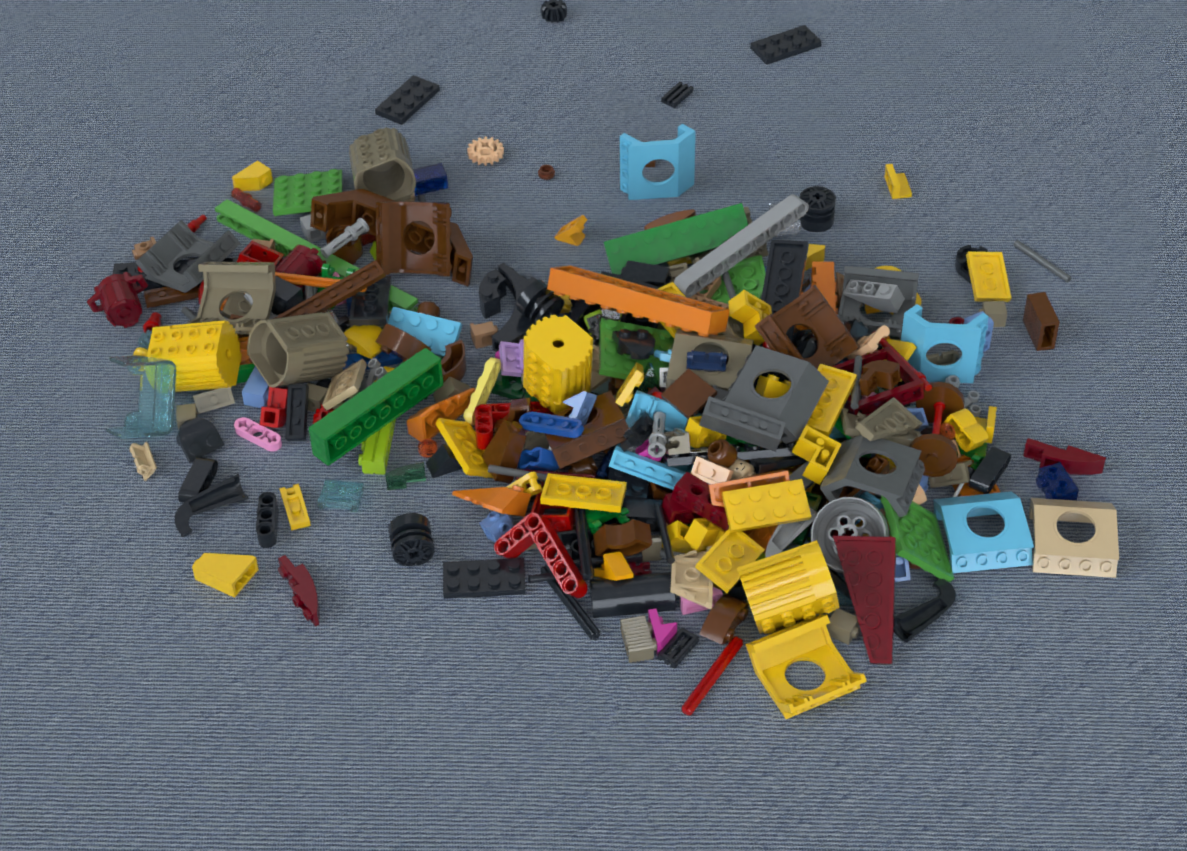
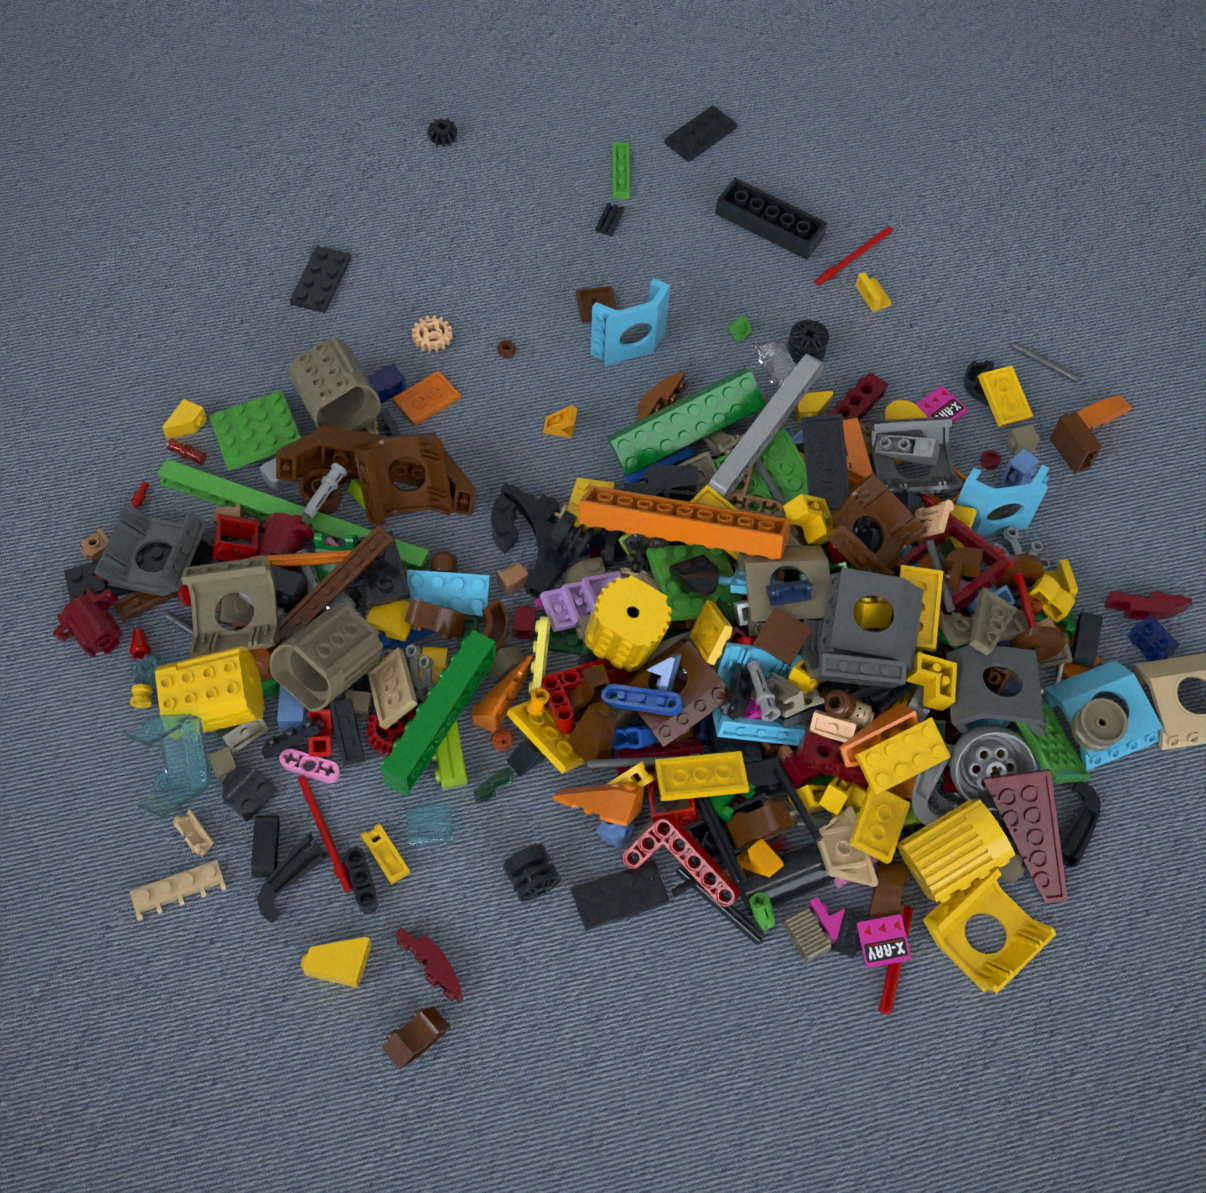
camera: 20 degrees left, 15 degrees up
(115, 496) = (177, 887): none -> tan hinge
(249, 405) = (292, 736): none -> black plate
(252, 509) = (340, 870): none -> red bar
(267, 637) = (415, 1037): none -> reddish brown brick
(464, 195) = (426, 398): none -> orange tile
(465, 418) = (538, 699): none -> light orange bush
(476, 365) = (524, 623): none -> dark red brick
(602, 609) = (762, 910): none -> bright green hinge
(701, 61) = (620, 170): none -> bright green tile
(704, 655) = (884, 941): none -> tile
(761, 189) = (740, 328): none -> bright green tile
(822, 112) = (771, 218): none -> black brick
(859, 254) = (861, 398): none -> dark red brick
(864, 162) = (831, 272): none -> red bar
(930, 279) = (942, 403): none -> dark pink tile
(966, 524) = (1099, 724): none -> dark tan wheel
(1080, 305) = (1104, 411): none -> orange slope

